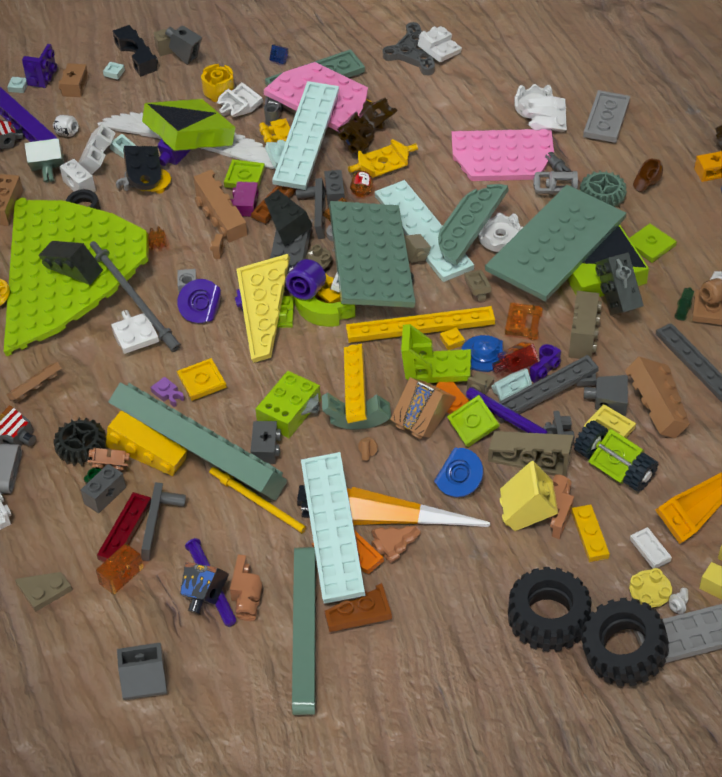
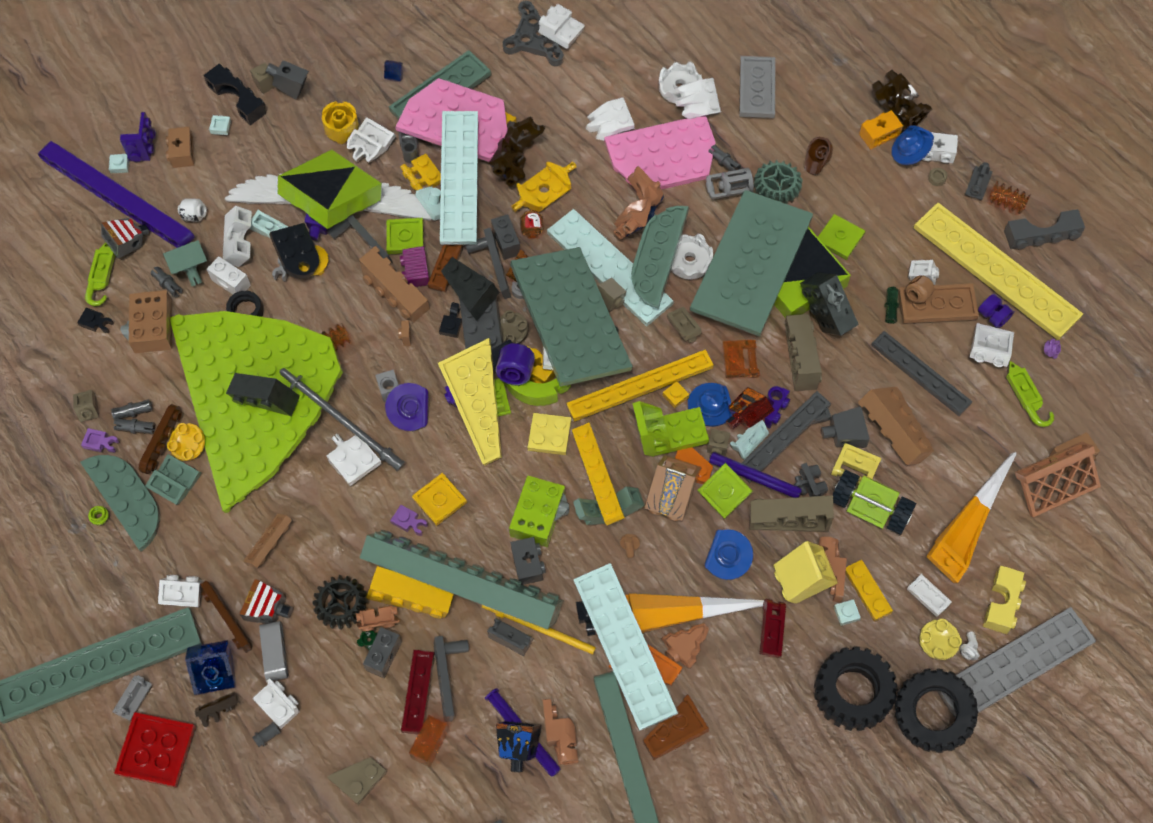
camera: 15 degrees left, 15 degrees up
(24, 174) = (166, 281): none -> dark grey pin
(199, 155) = (339, 228): none -> dark grey piece
(226, 501) = (510, 637): none -> dark grey hinge
(262, 248) = (451, 324): none -> black plate
(322, 348) = (549, 434): none -> light yellow plate
(461, 118) = (610, 119): none -> white plate
(476, 178) = (641, 211): none -> nougat hips
(483, 545) = (772, 628): none -> dark red plate
(563, 547) = (847, 612): none -> light aqua plate

